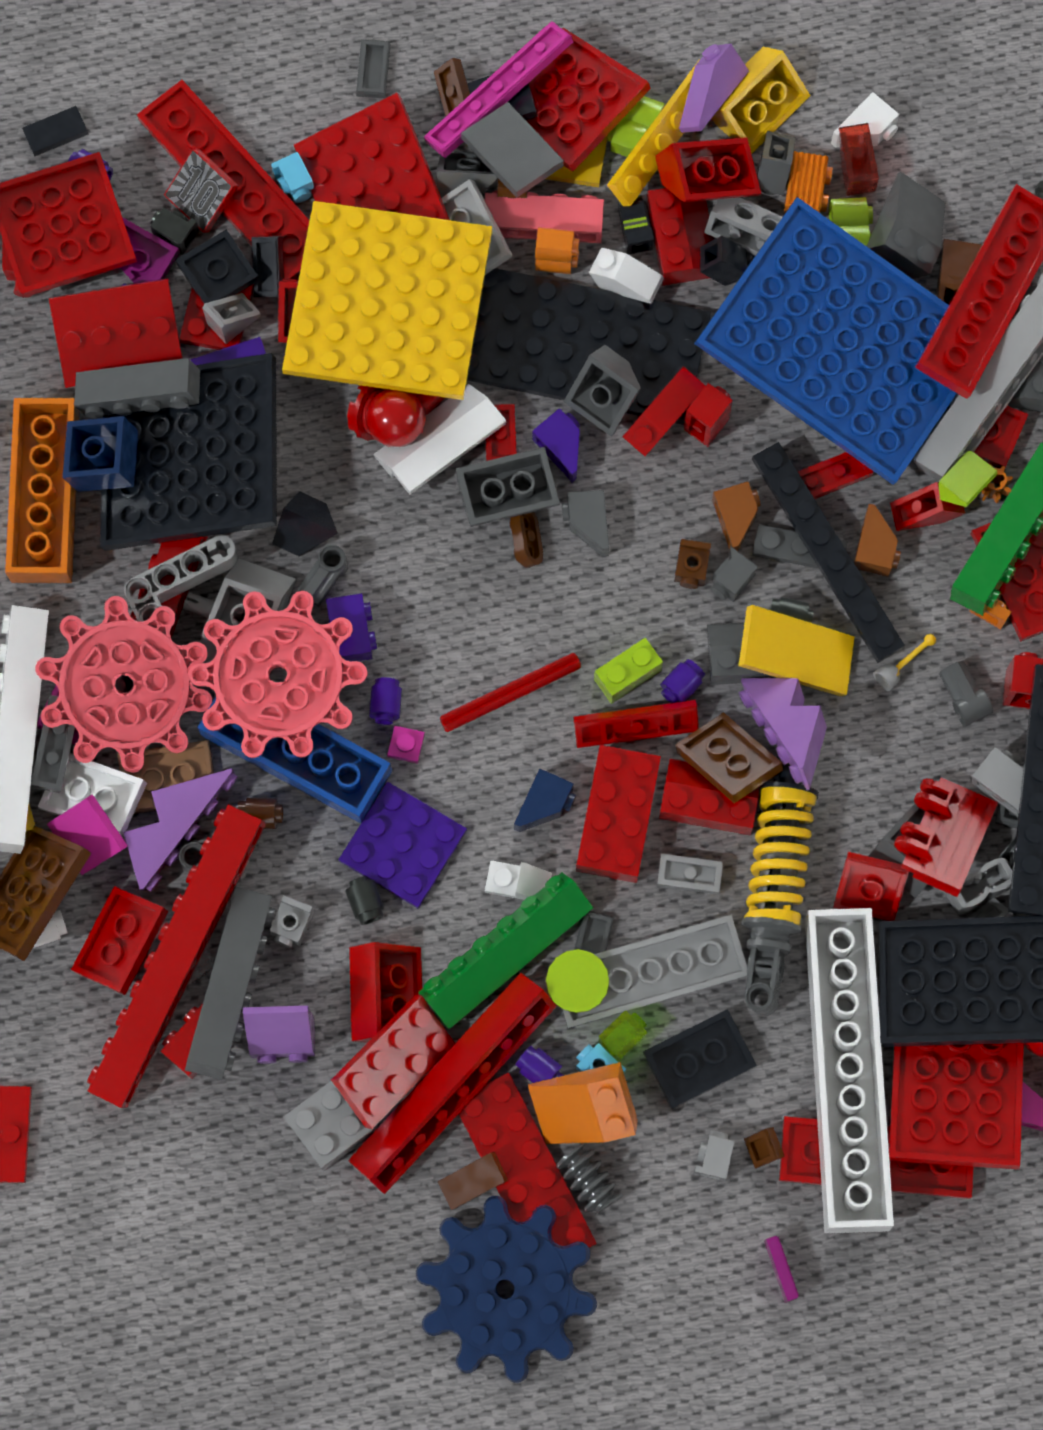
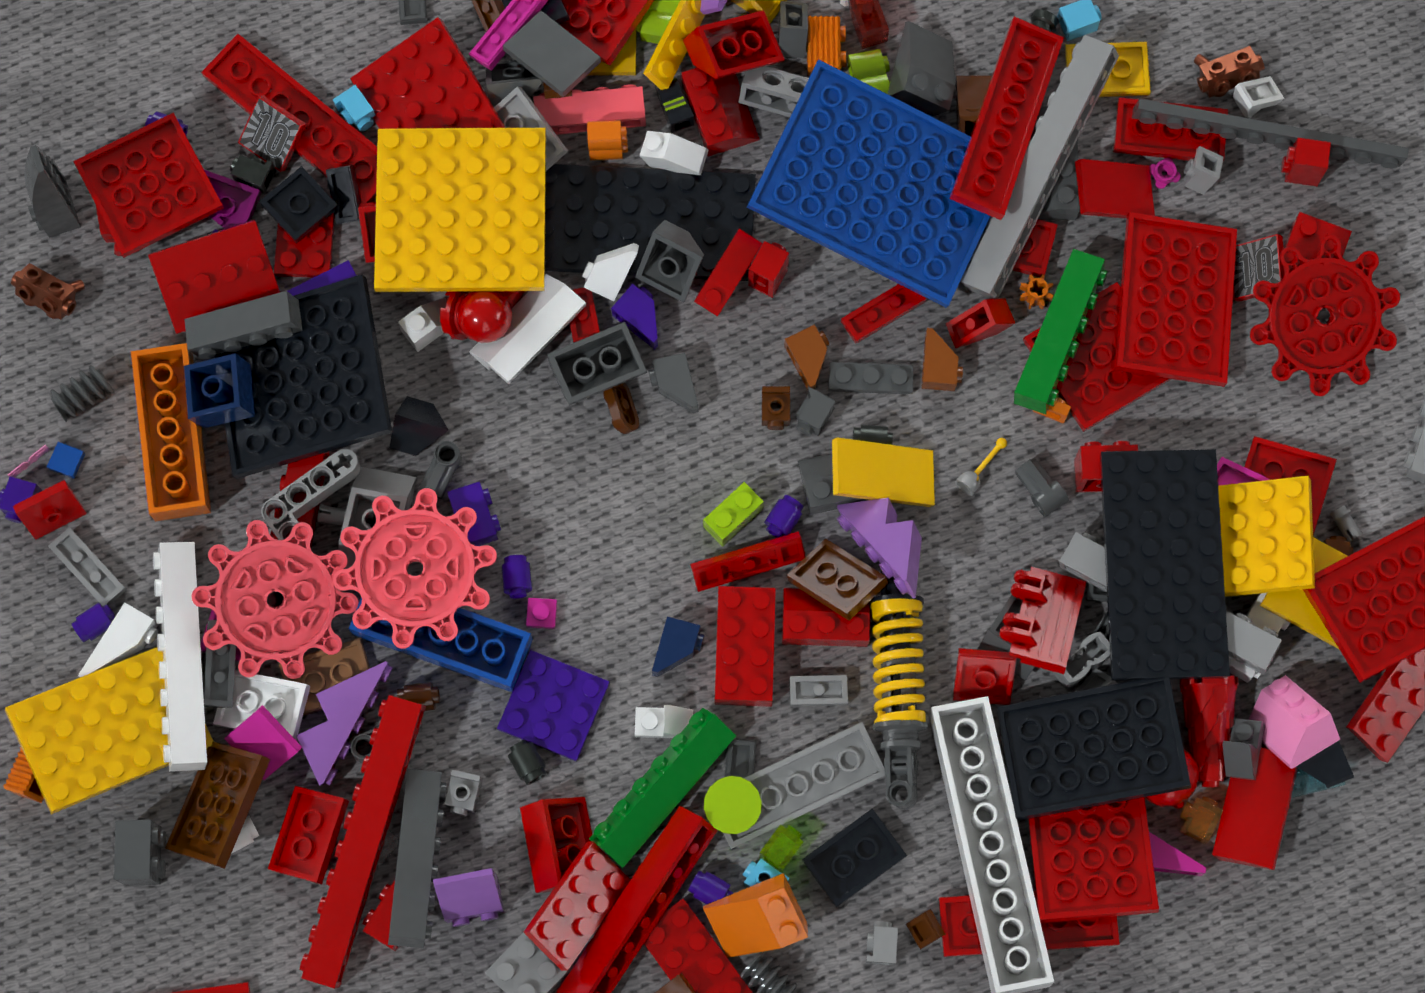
camera: 10 degrees left, 0 degrees up
(55, 131) = (128, 98): black tile -> none
(230, 315) = (318, 245): light grey slope -> none
(328, 417) = (423, 324): none -> white slope
(510, 692) = (629, 550): red axle -> none
(537, 390) = (609, 271): none -> white slope
(723, 260) = (759, 126): black brick -> none
(828, 552) = (897, 378): black plate -> none
(966, 479) = (1011, 293): lime slope -> none

